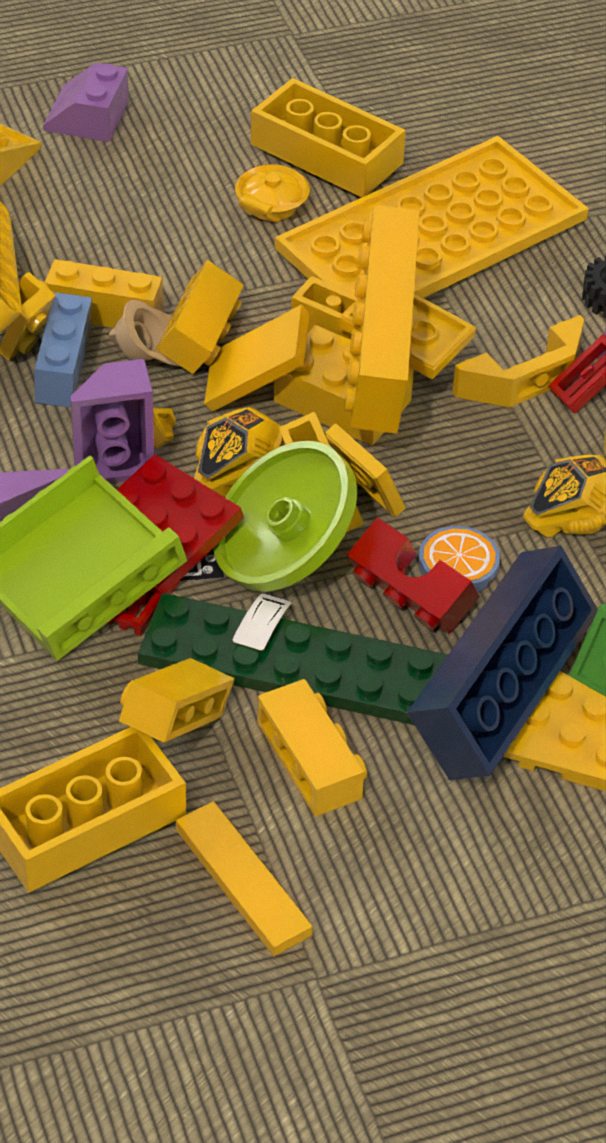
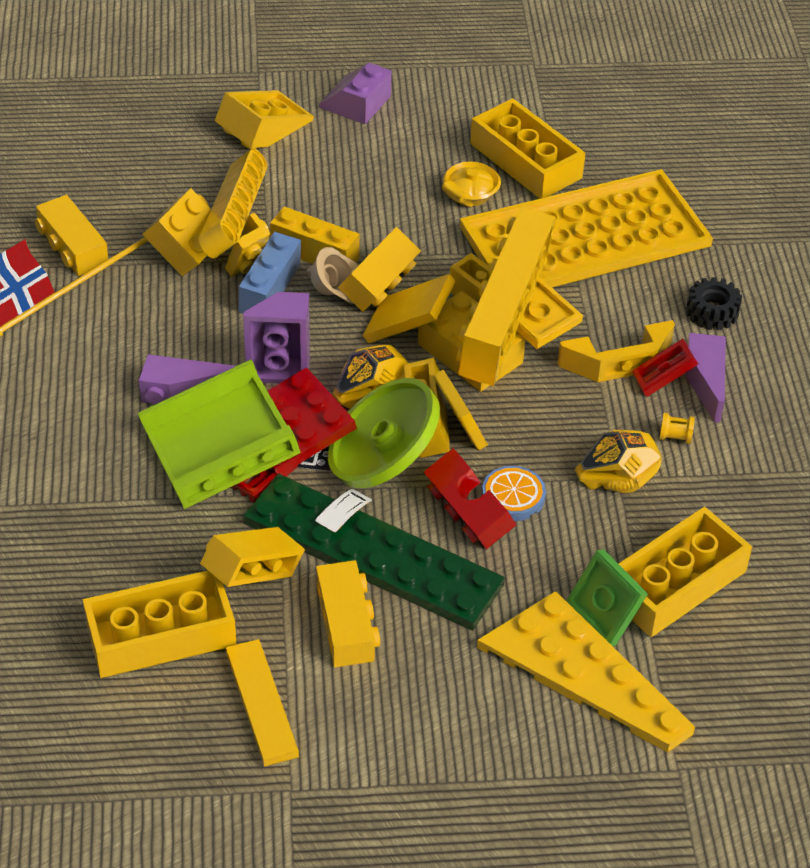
camera: 15 degrees right, 0 degrees up
(162, 423) = (322, 345): yellow tile -> none
(503, 663) = (509, 580): dark blue brick -> none

